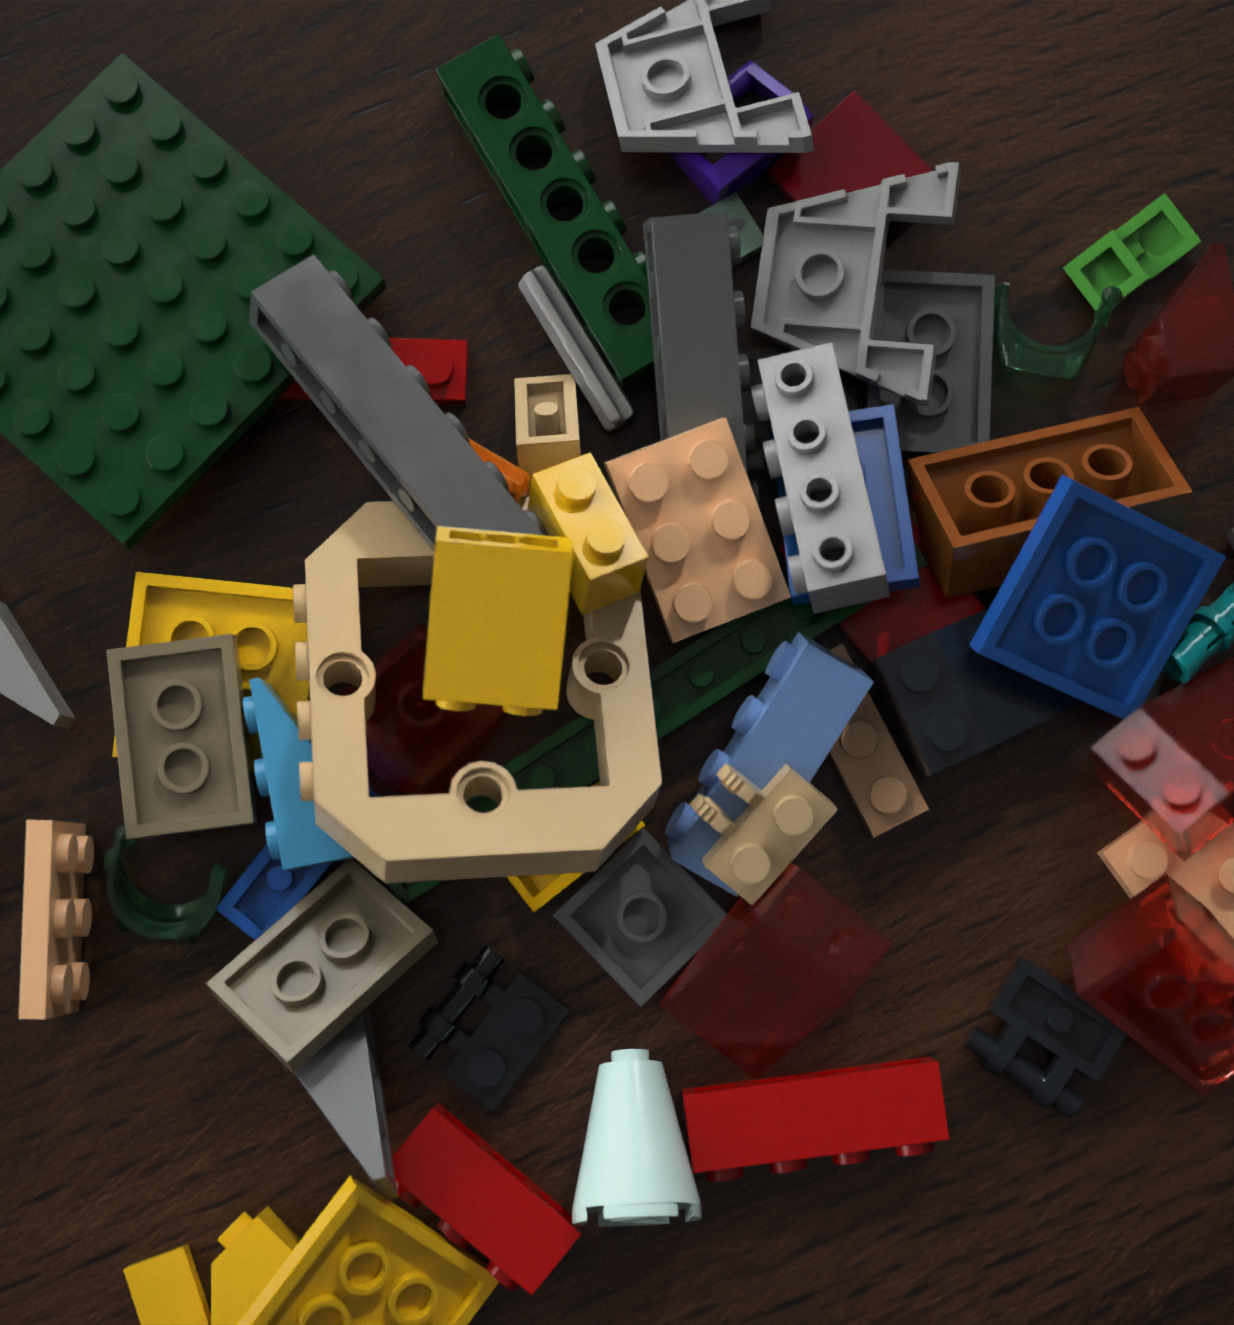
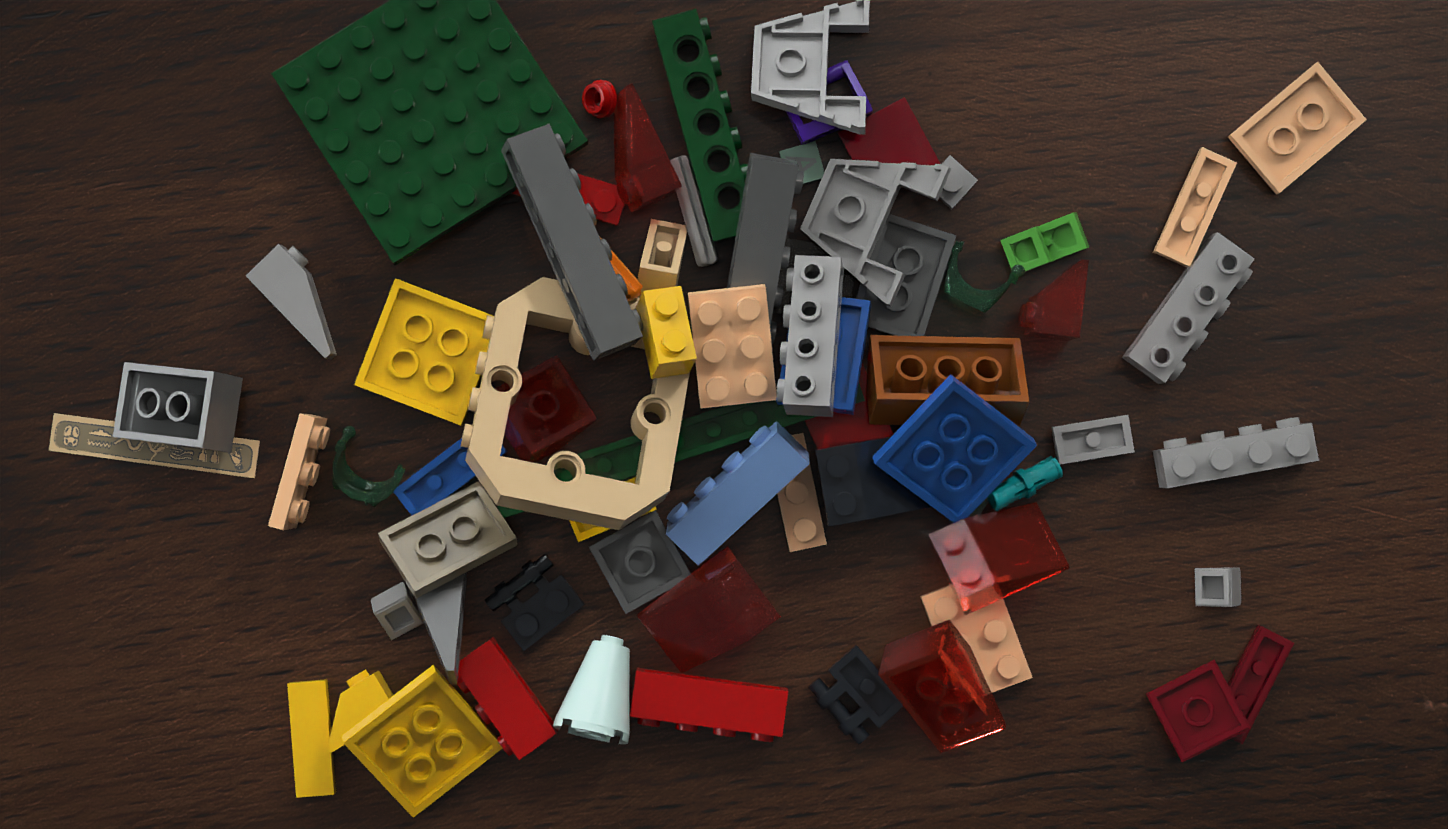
camera: 15 degrees right, 5 degrees up
(181, 736) = (398, 385): dark tan plate -> none
(271, 1102) = (396, 611): none -> light grey slope
(293, 832) = (450, 423): dark azure slope -> none
(386, 214) = (599, 98): none -> red plate
(474, 288) = (641, 163): none -> clear red slope
(497, 620) = (599, 373): yellow brick -> none
(766, 833) = (725, 533): tan hinge -> none
(973, 204) = (957, 183): none -> light grey plate

